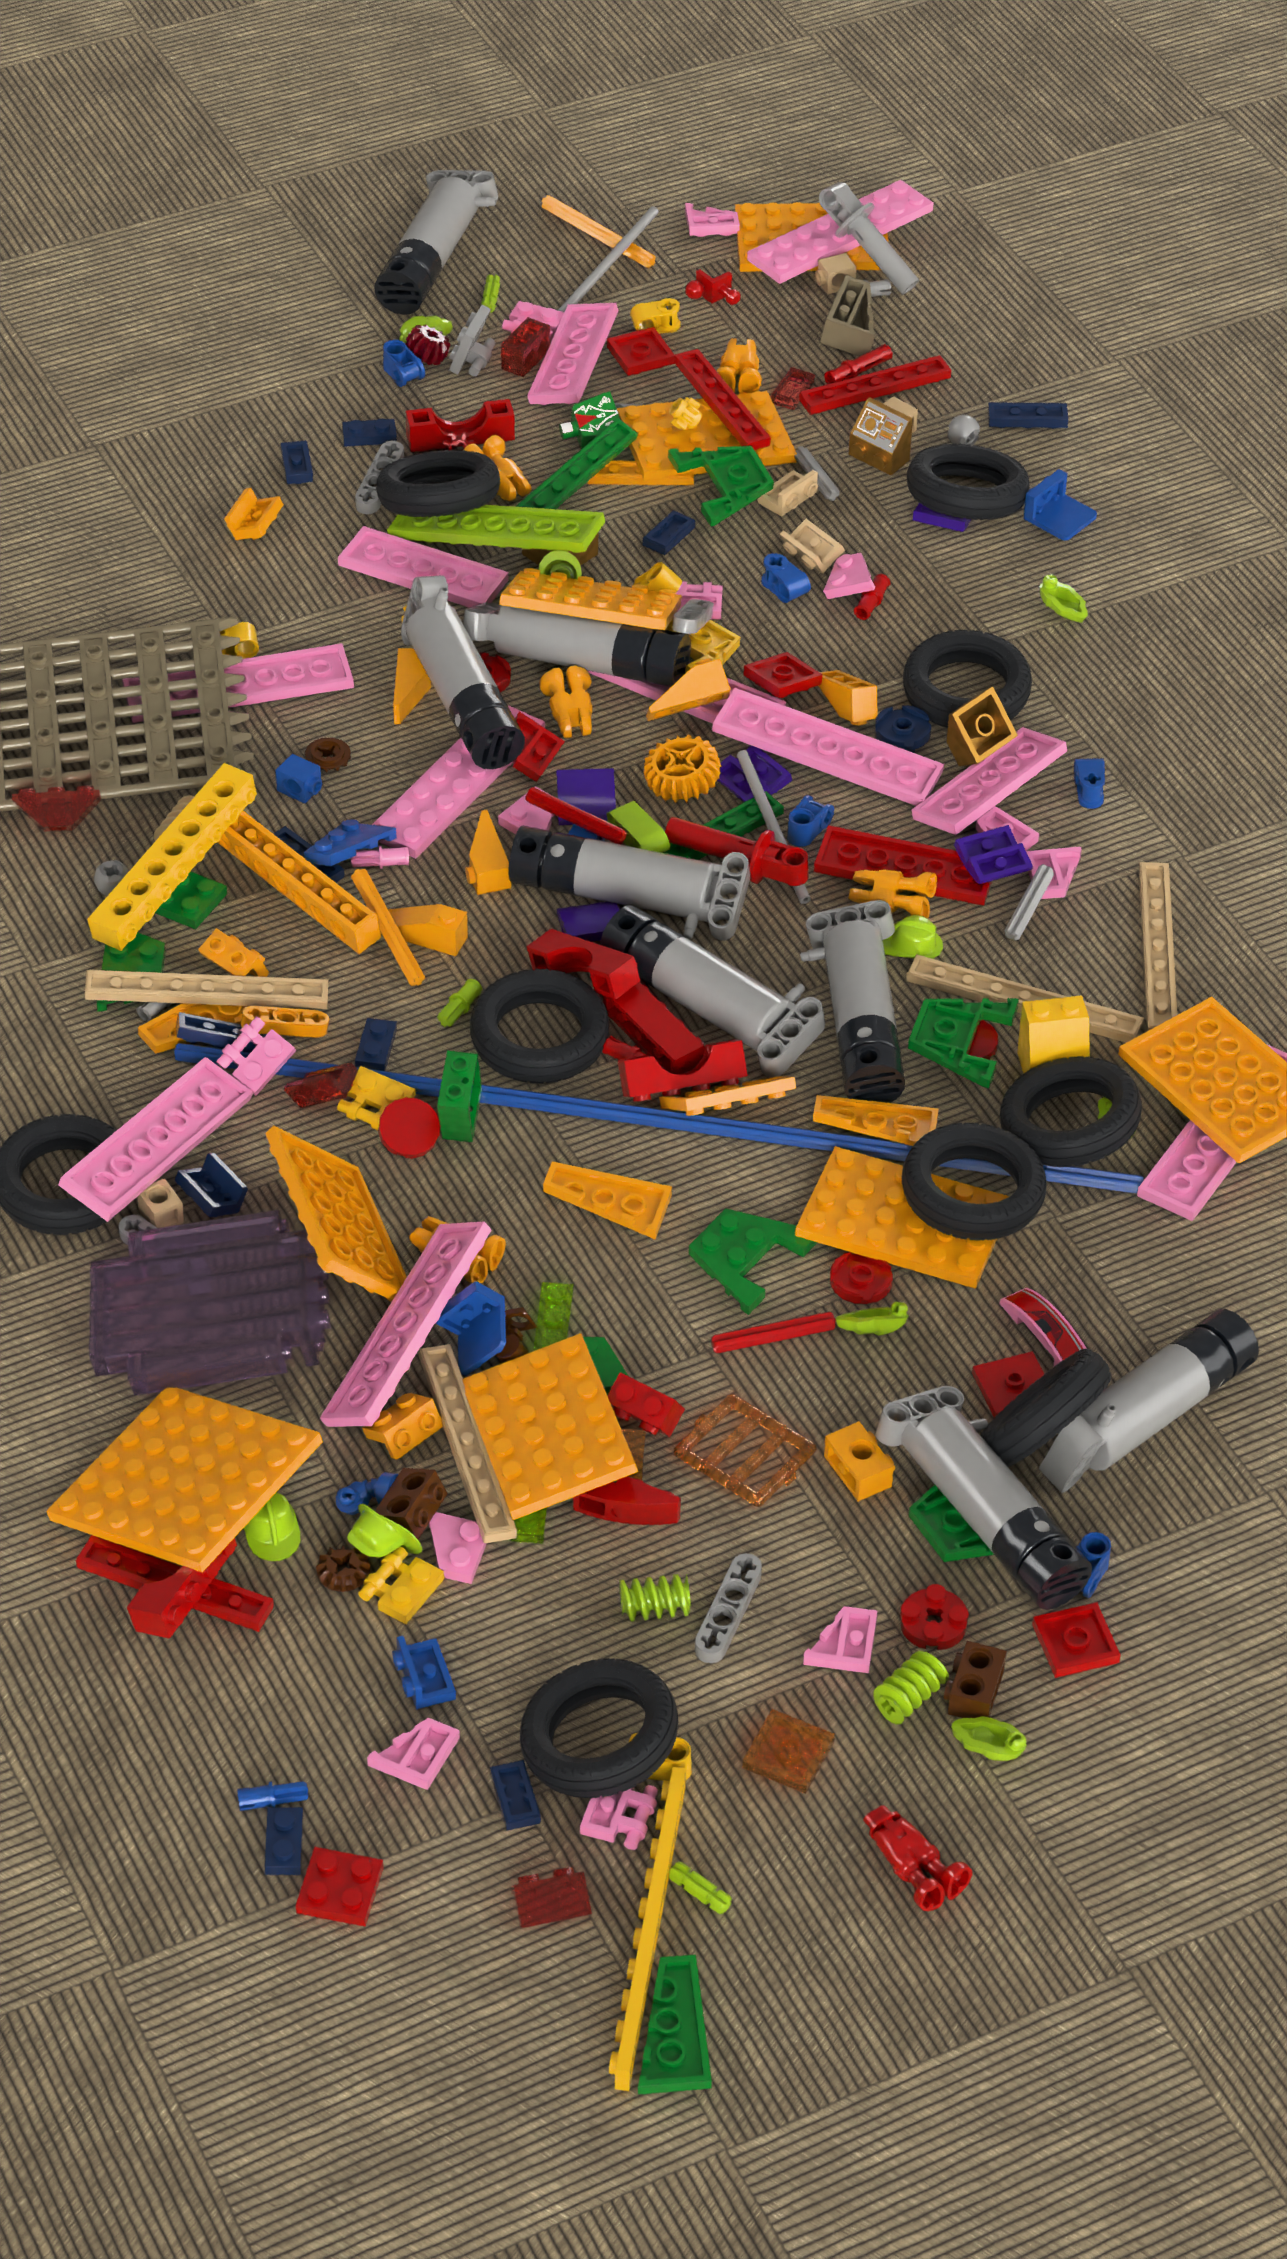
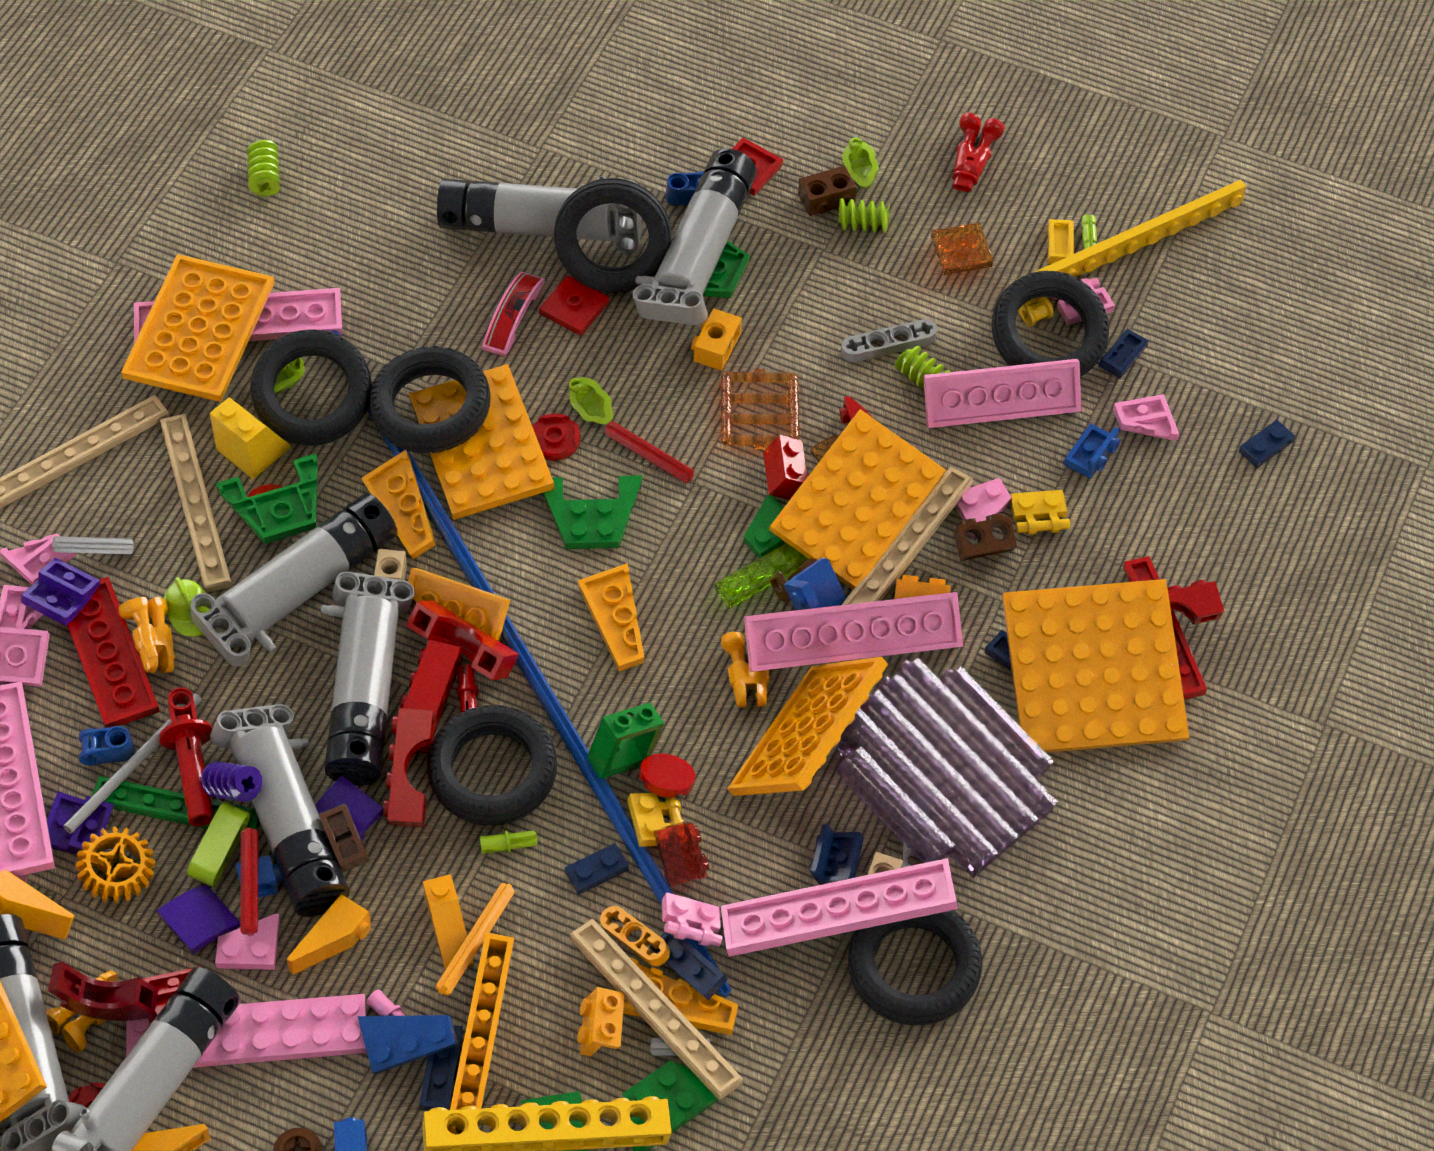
camera: 130 degrees left, 10 degrees up
(270, 1795) = (1248, 467): blue axle -> none
(339, 1886) = (1265, 397): red plate -> none
(348, 1578) = (1053, 558): reddish brown gear -> none
(361, 1492) = (984, 564): blue arm -> none
(380, 1536) = (1028, 536): lime piece -> none
(551, 1898) = (1167, 295): clear red bracket -> none
(558, 889) = (344, 837): none -> reddish brown brick
(558, 1634) = (1002, 393): none -> bright pink plate
(563, 688) = (102, 999): none -> dark red arch
(675, 838) = (231, 781): none -> dark purple piece
(676, 2035) = (1188, 184): green wing -> none
(718, 1857) = (1060, 239): none -> yellow tile
(812, 1073) = (391, 562): none -> tan brick
(845, 1642) = (858, 267): bright pink wing -> none
(937, 1602) = (796, 230): red plate -> none

